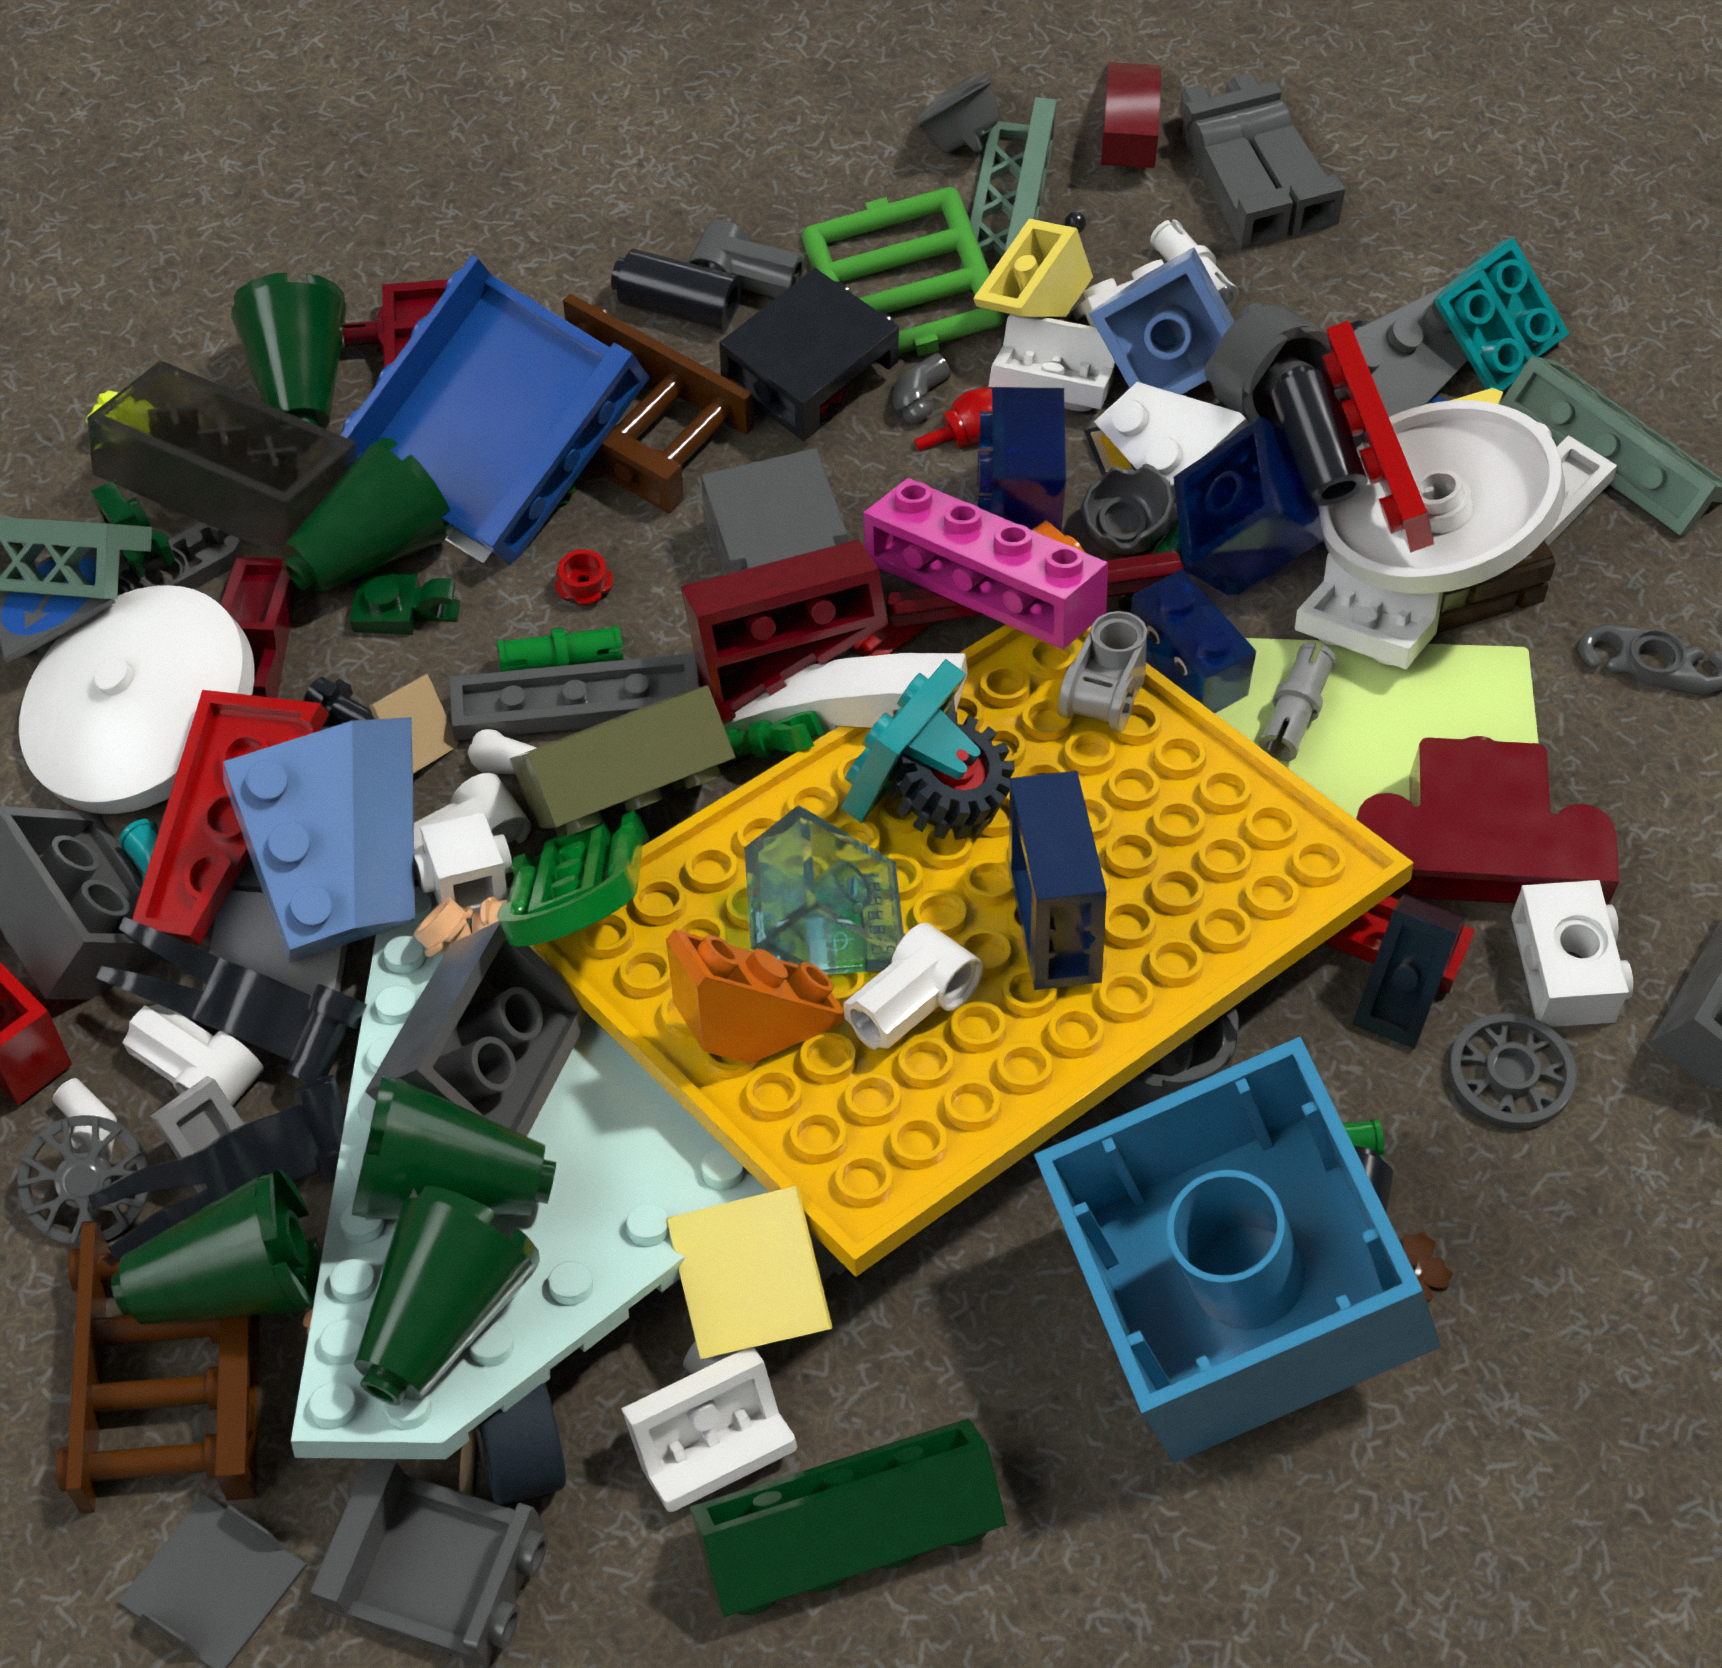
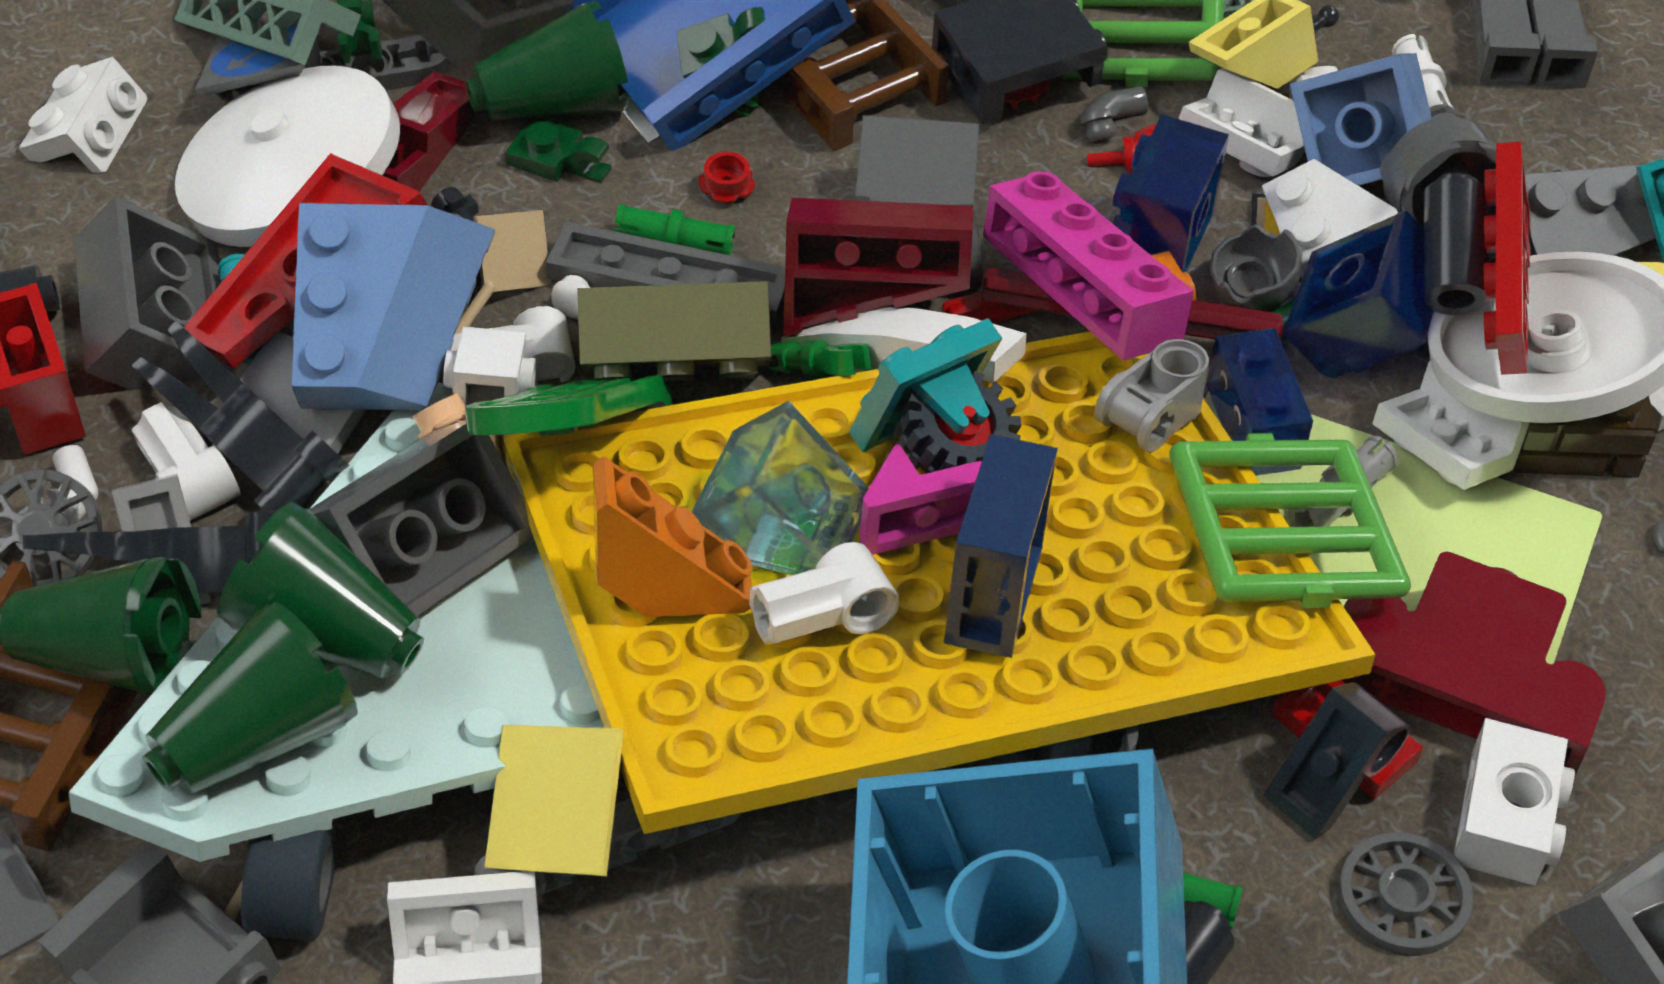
camera: 20 degrees right, 5 degrees down
(514, 439) = (709, 38): none -> plate
(950, 865) = (913, 507): none -> dark pink slope
(1233, 803) = (1352, 492): none -> bright green bar

